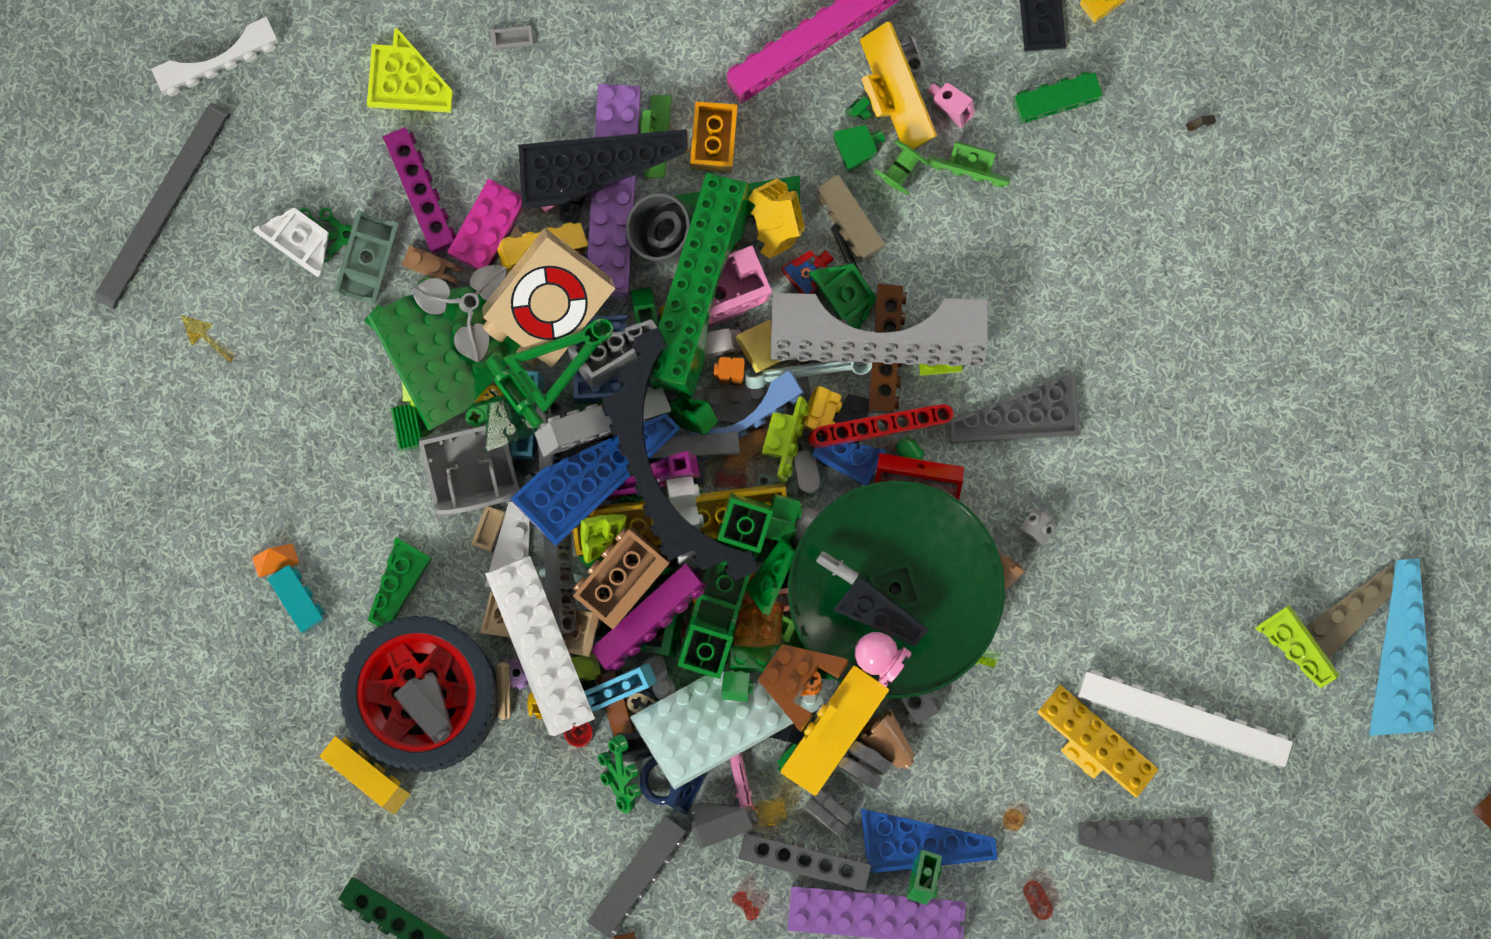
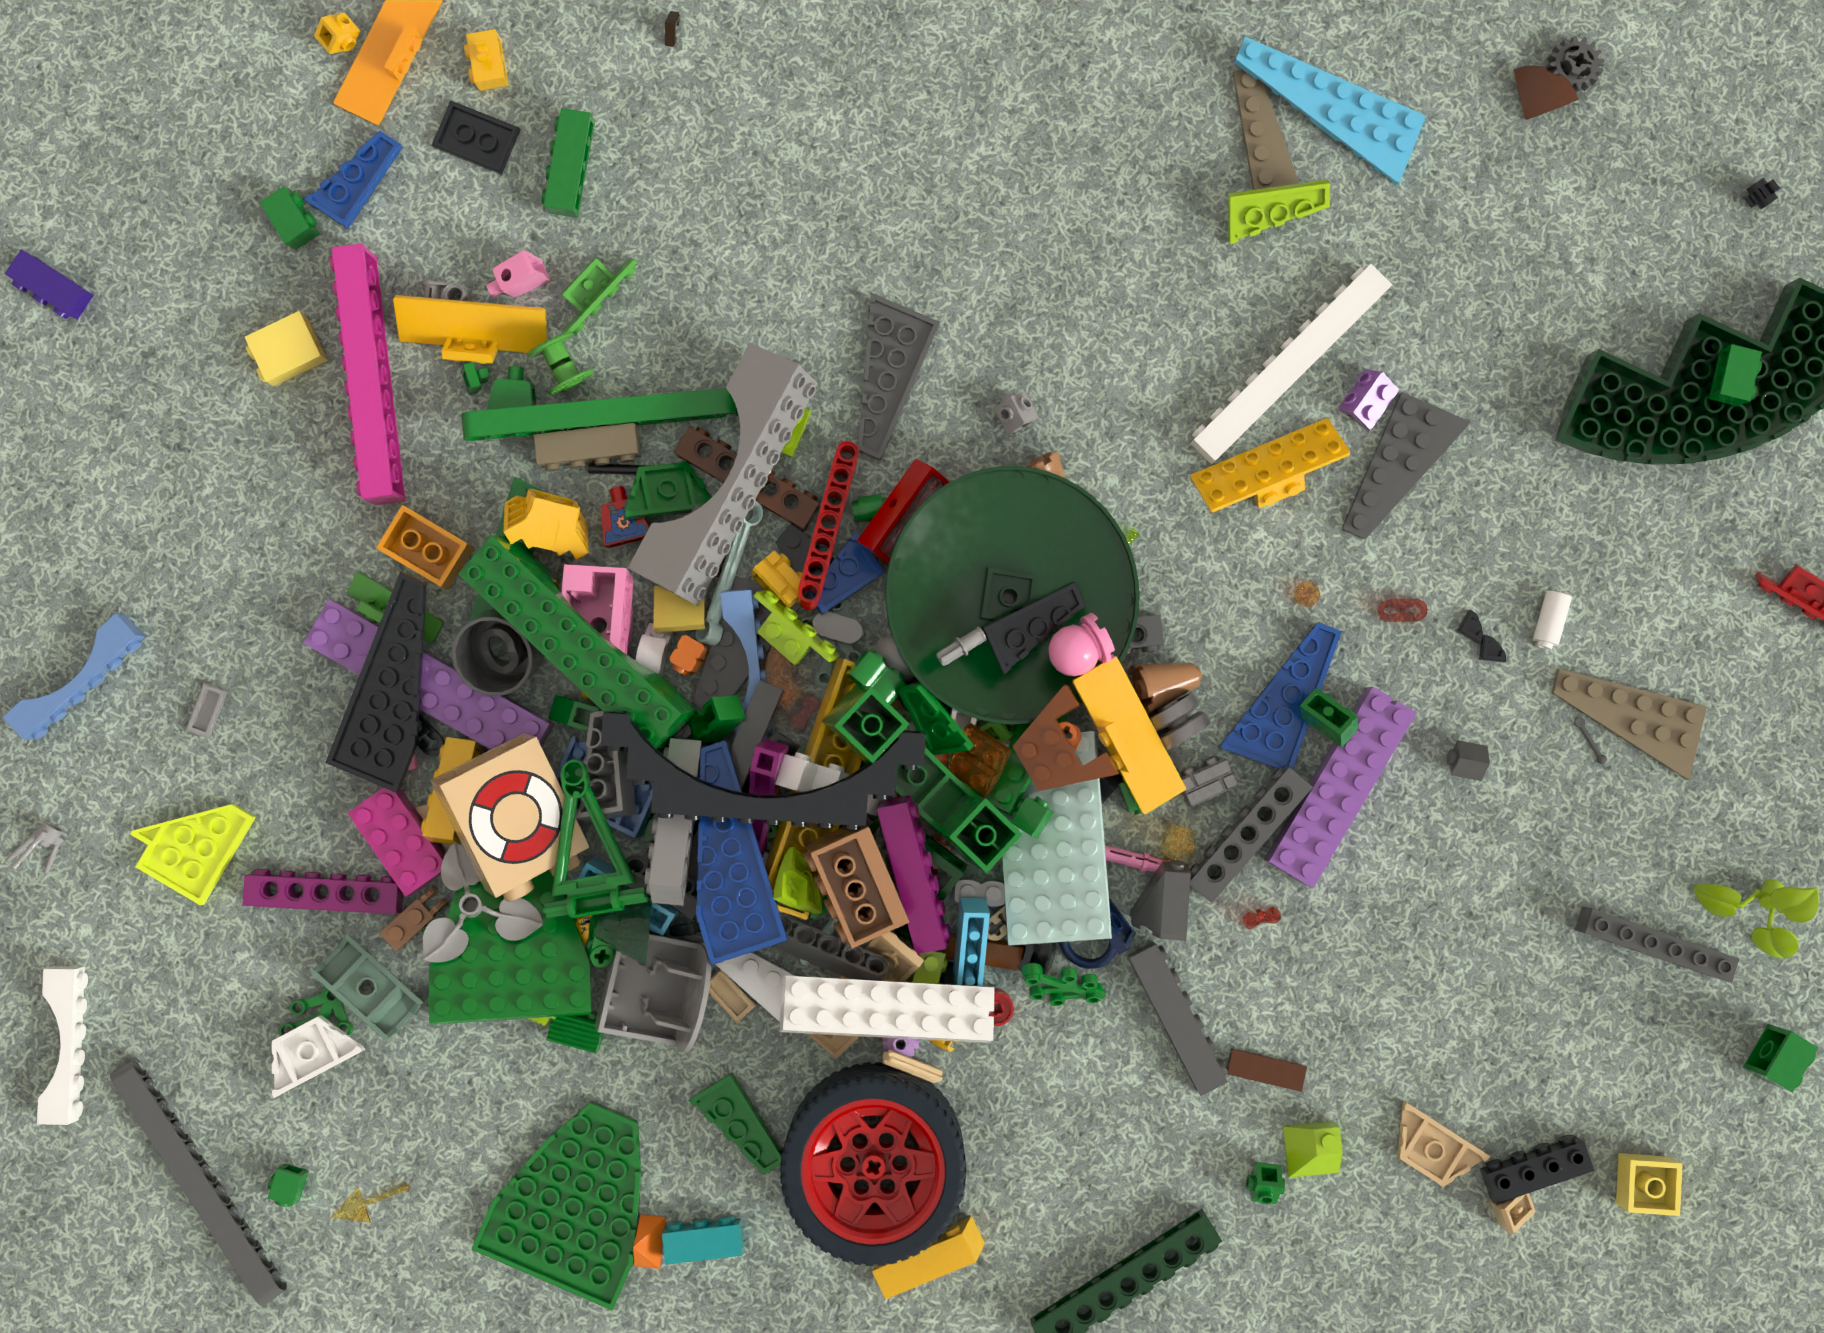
camera: 65 degrees left, 5 degrees up
(191, 271) = (287, 1185): none -> green brick
(274, 490) = (573, 1208): none -> green wing
(427, 706) = (895, 1168): dark grey slope -> none
(877, 213) = (597, 413): none -> green beam
(1189, 793) = (1369, 398): none -> bracket

